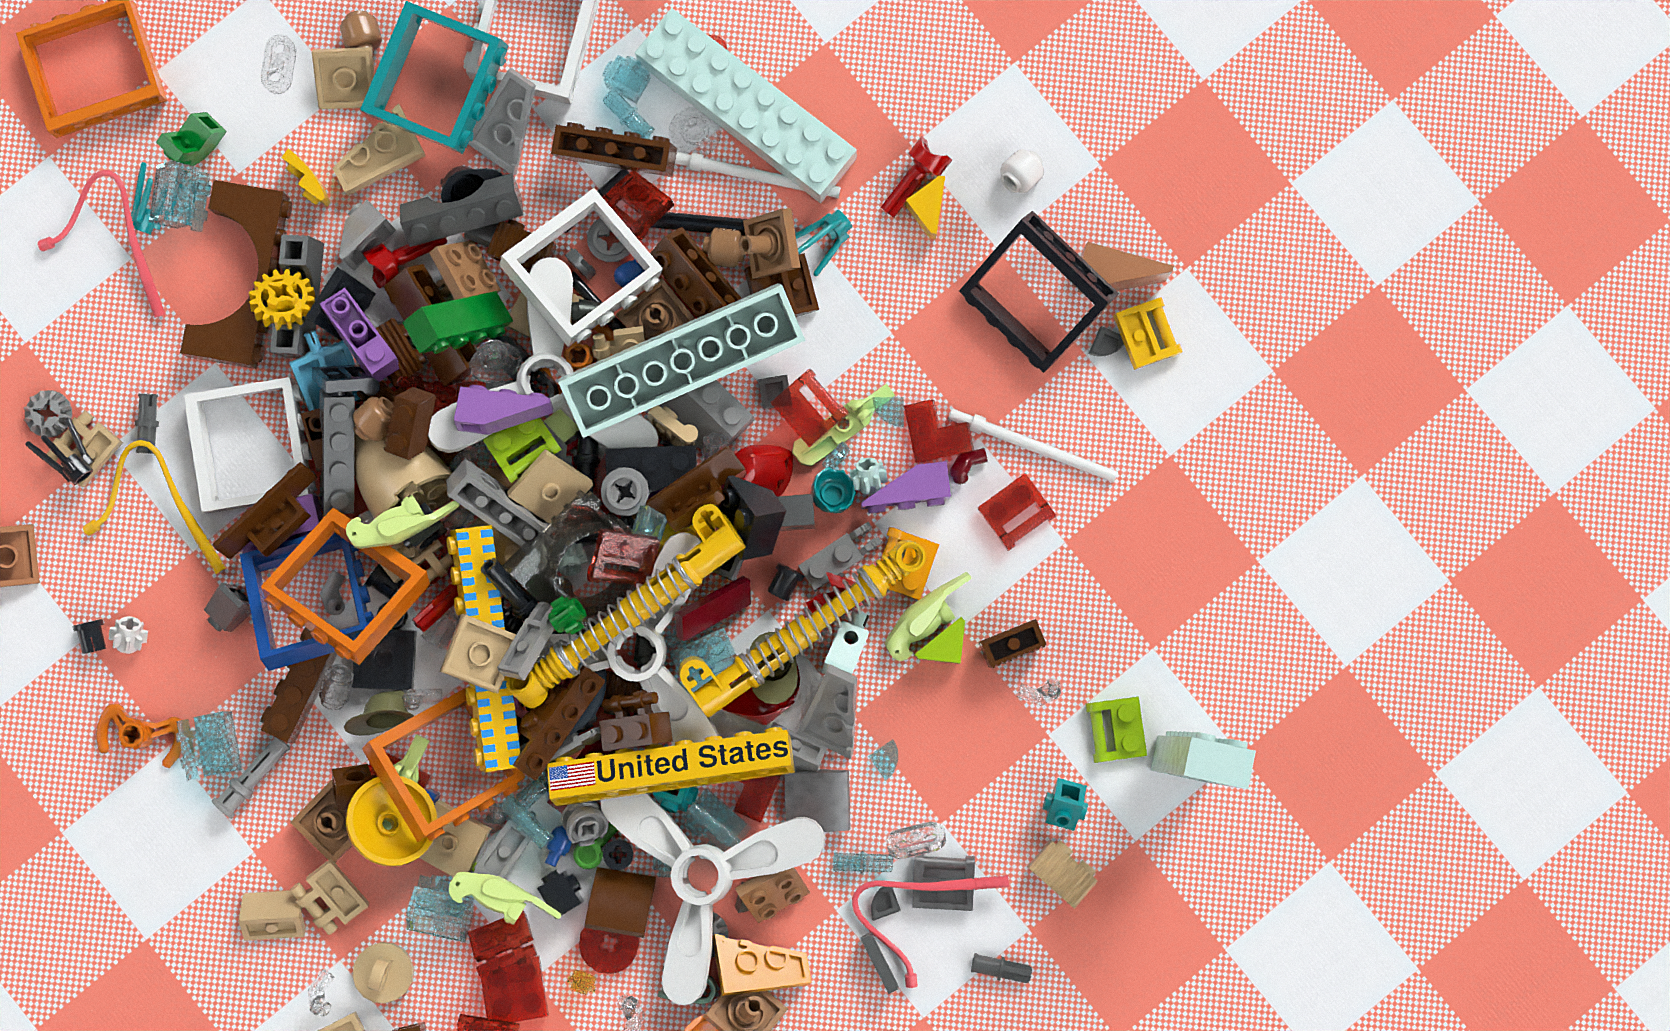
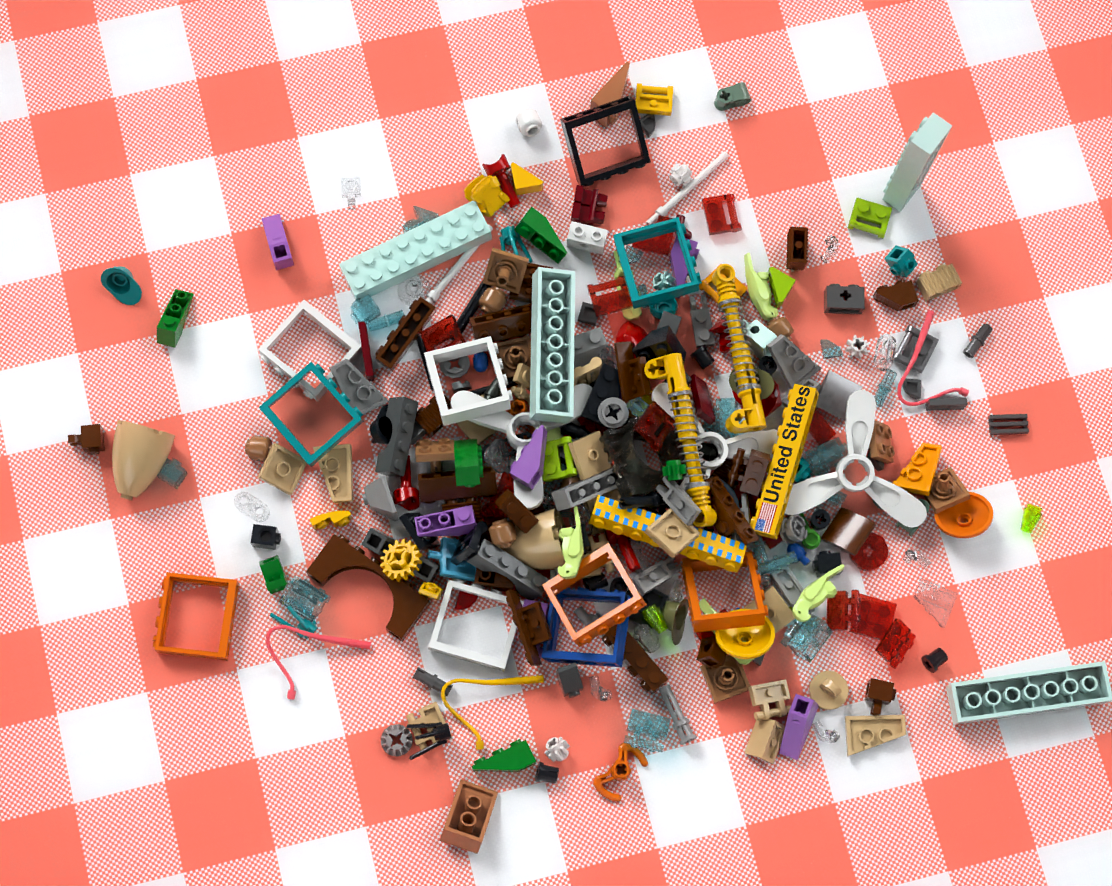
camera: 70 degrees left, 10 degrees down
(85, 579) = (510, 760): none -> green slope
(233, 93) = (257, 533): none -> black brick
(235, 655) = (598, 691): none -> clear arm
(261, 362) = (431, 590): none -> yellow slope
(277, 413) = (465, 600): none -> red tile
(310, 951) = (798, 726): none -> medium lavender slope
(366, 685) = (655, 618): none -> clear neon green cone
(423, 657) = (655, 576): none -> light grey hinge
(568, 109) = (366, 351): none -> dark red tile
(582, 982) = (885, 575): clear yellow plate -> none
(801, 94) = (422, 217): none -> clear light blue slope
(803, 674) = (772, 365): none -> black bush
(859, 263) = (540, 233): none -> green slope
(876, 161) = (486, 194): none -> yellow piece
(876, 673) = (780, 326): none -> medium nougat head
(884, 335) = (587, 237): none -> white brick
(892, 384) = (648, 232): none -> teal window
(896, 795) = (859, 342): none -> white gear
(945, 312) = (585, 205): none -> dark red hips
(955, 735) = (836, 304): none -> dark grey brick
(1011, 823) = (898, 296): none -> reddish brown slope
(1046, 425) = (680, 175): none -> white gear
(1212, 450) = (732, 97): none -> sand green piece

